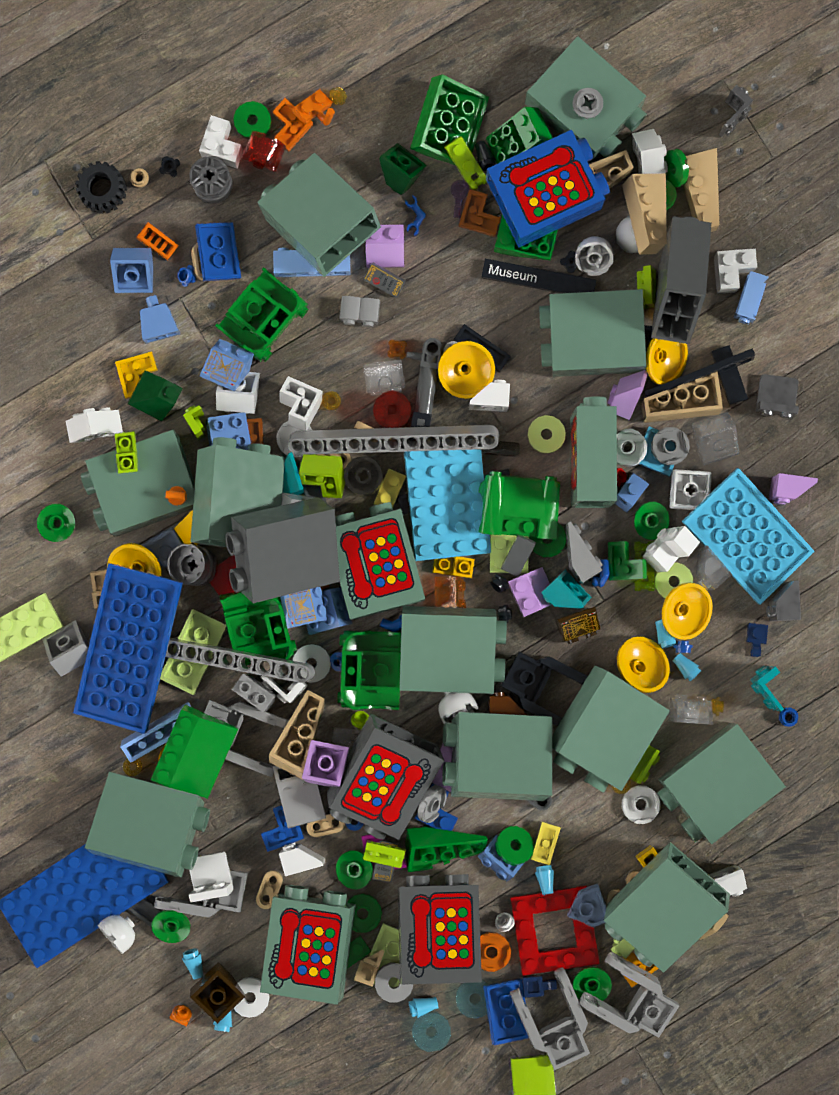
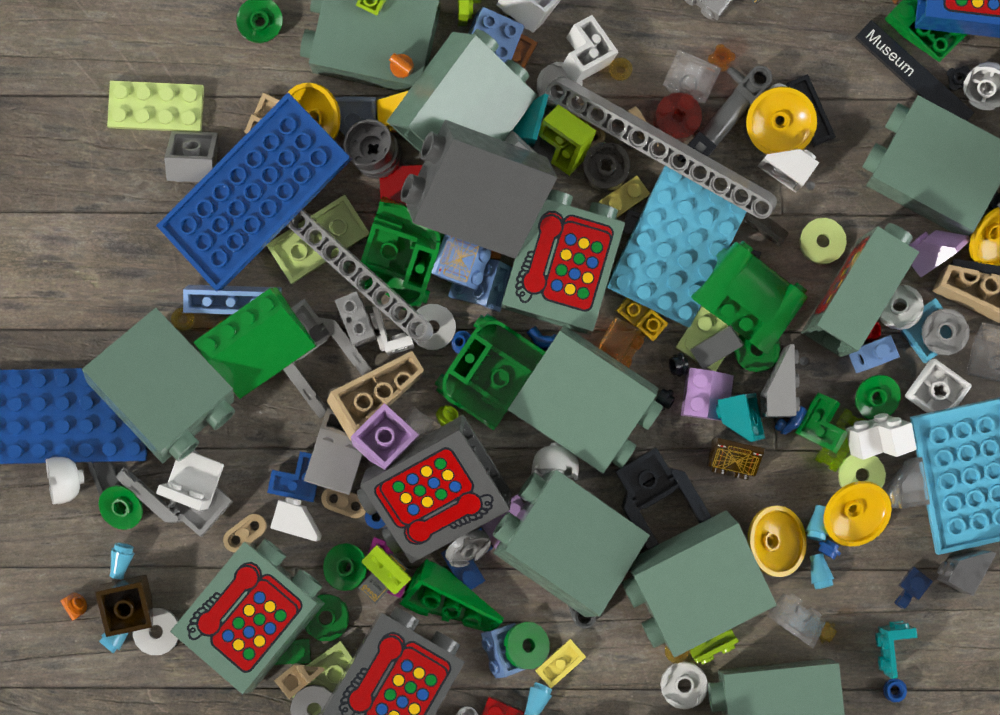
camera: 25 degrees right, 0 degrees up
(503, 705) = (603, 489): reddish brown slope -> none

